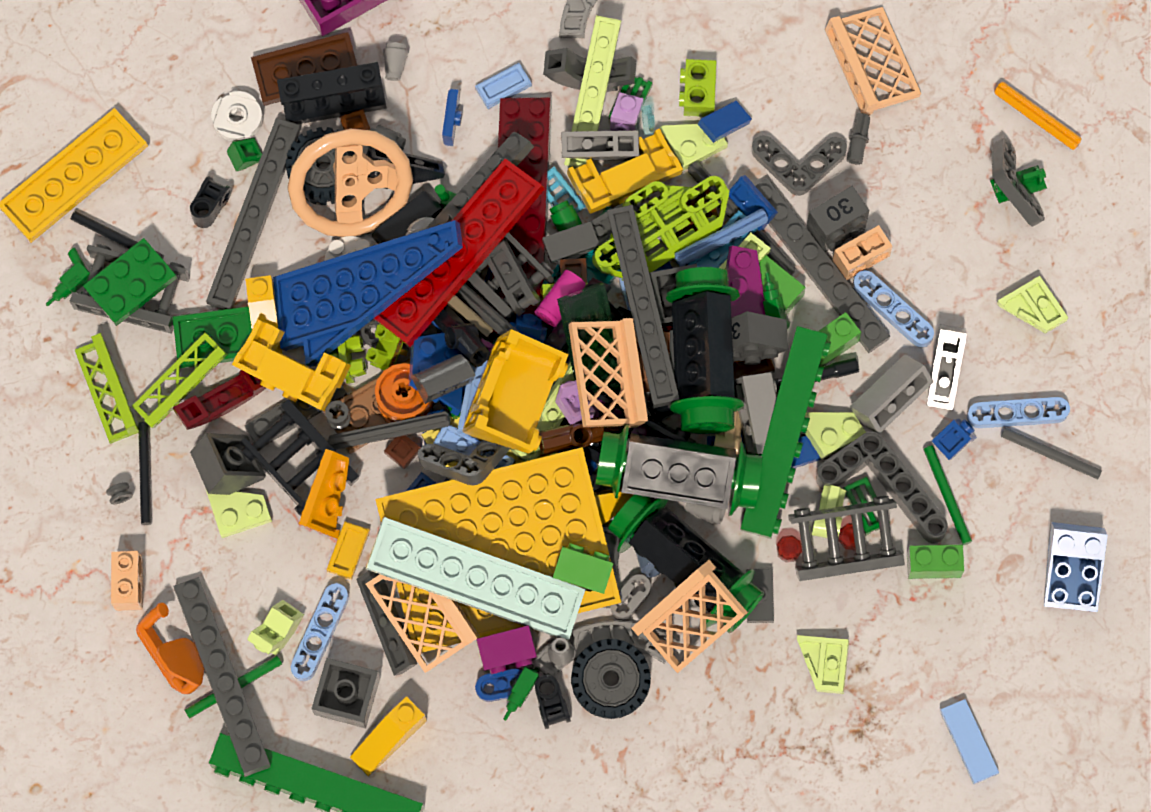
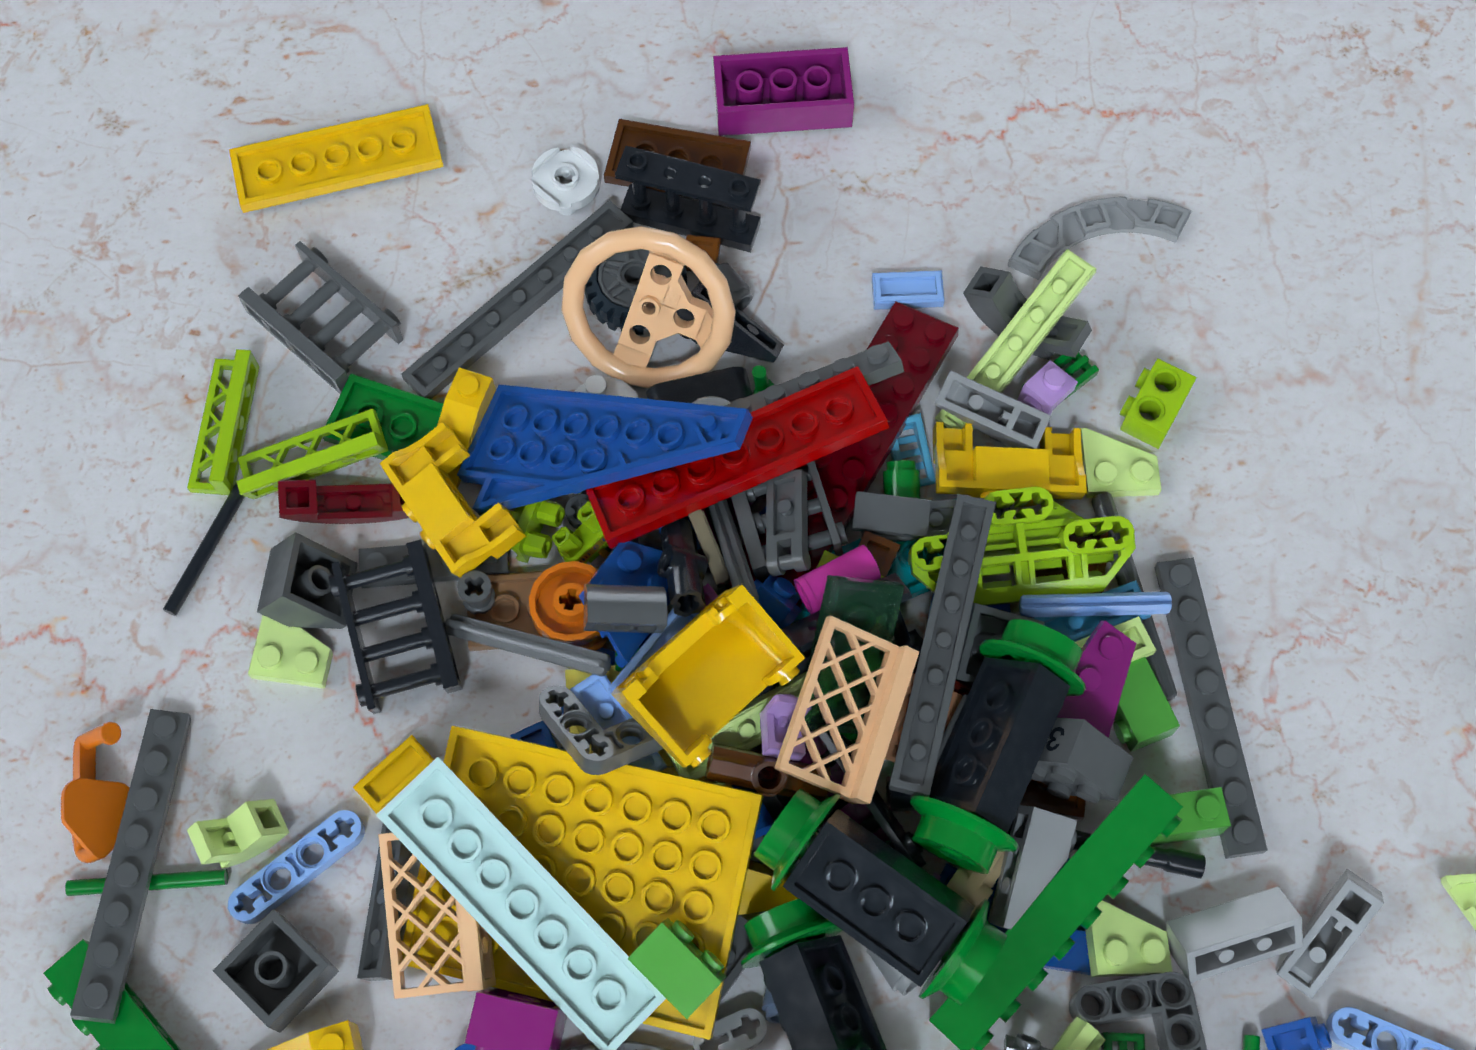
camera: 25 degrees right, 5 degrees down
(72, 279) = (263, 275): green piece -> none
(104, 231) = (346, 253): black bar -> none
(119, 493) = (158, 557): dark grey bush -> none
(126, 580) = (97, 672): light nougat brick -> none
(130, 281) = (319, 306): green plate -> none
(210, 197) = (478, 256): black piece -> none
(244, 153) = (550, 225): green slope -> none
(324, 498) = (394, 692): light orange wing -> none
(394, 60) = (790, 198): light grey cone -> none
(402, 451) = (533, 678): copper plate -> none
(452, 117) = (823, 296): blue plate -> none
(648, 119) = (1071, 411): clear light blue tile -> none
(724, 121) = (1170, 459): blue tile -> none
(750, 199) = (1158, 573): blue plate -> none
(772, 301) = (1124, 725): green piece -> none
(803, 170) = (1245, 571): dark grey beam -> none
(838, 219) = (1268, 656): dark grey brick -> none
(854, 70) = (1375, 467): light nougat fence -> none
(858, 139) = (1341, 565): dark grey axle -> none
(862, 252) = (1281, 717): light nougat brick -> none
(890, 311) = (1295, 812): light blue beam -> none

